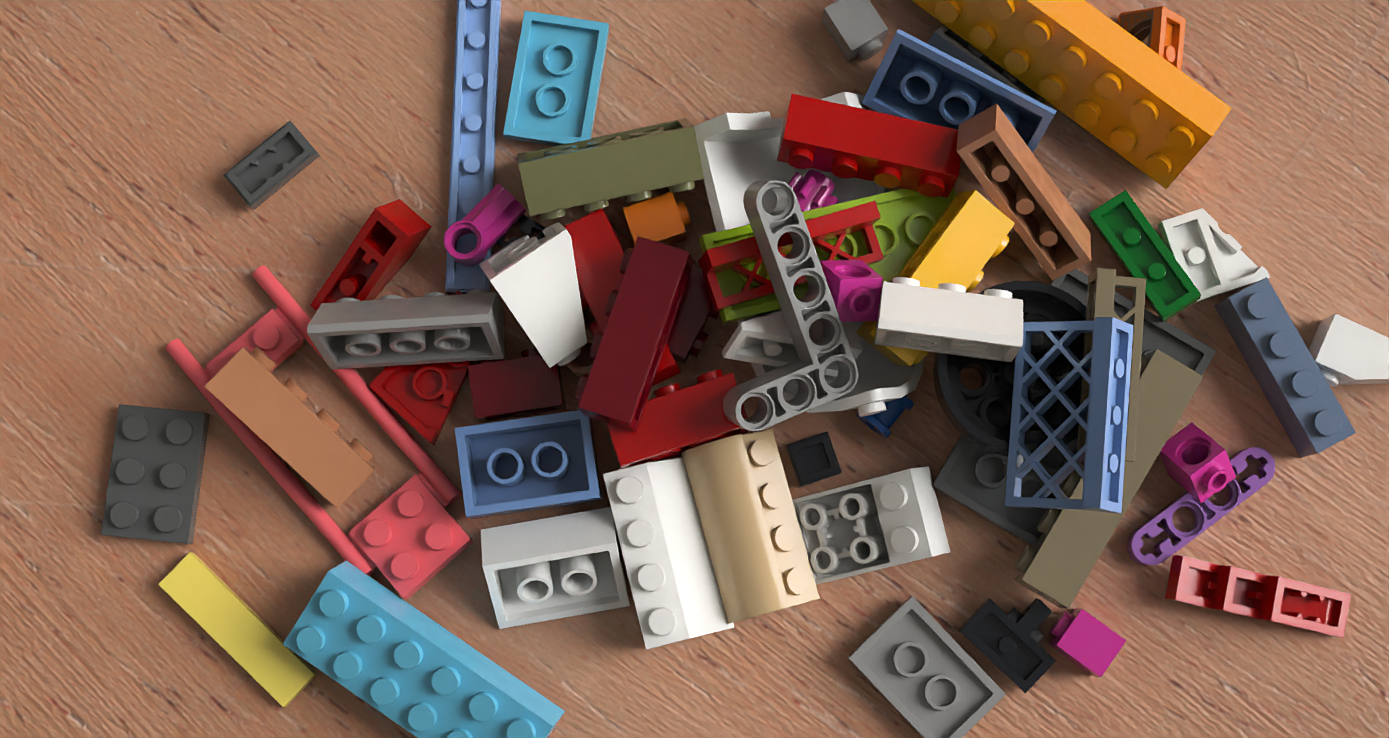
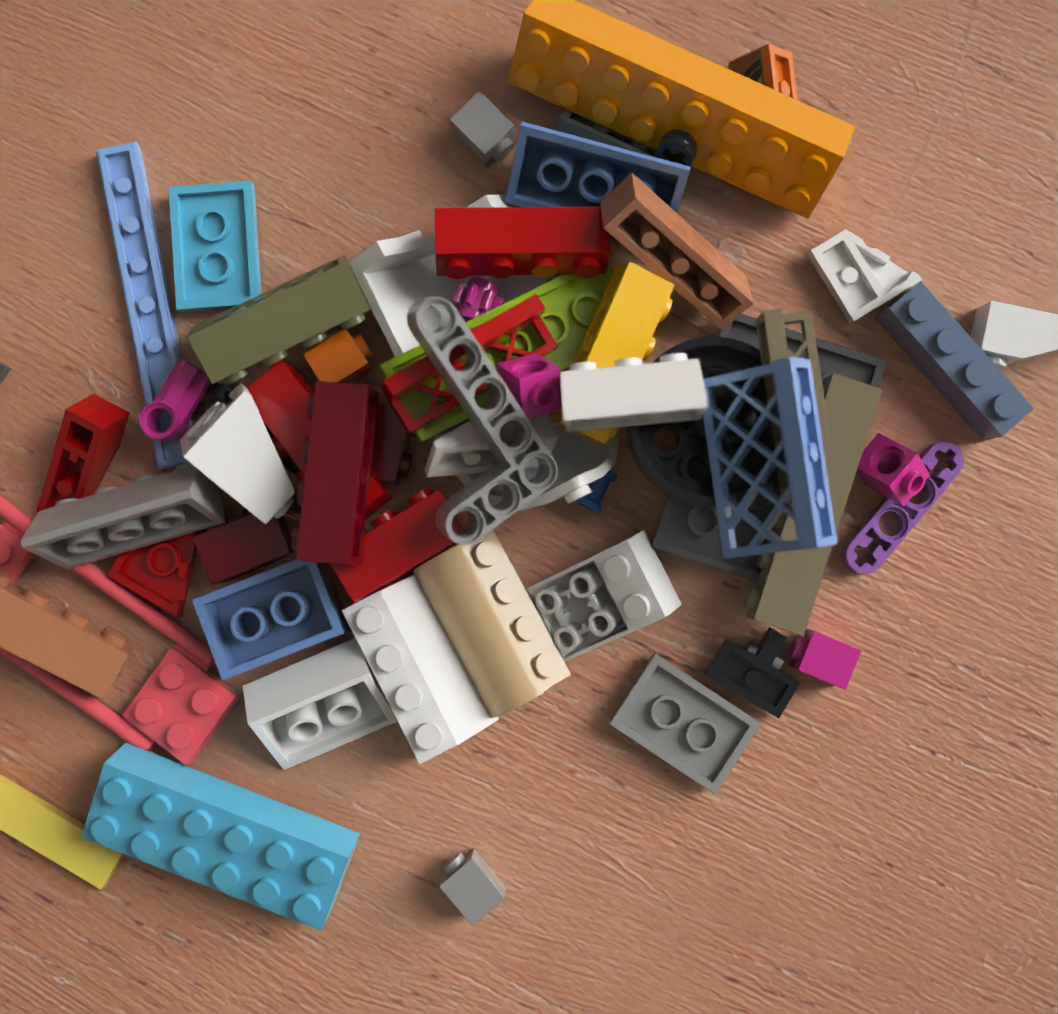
camera: 10 degrees left, 5 degrees up
(813, 459) = (537, 547): black tile -> none
(1047, 81) = (675, 141): none -> black bush
(1144, 255) = (801, 286): green plate -> none
(1258, 596) = (971, 579): red slope -> none

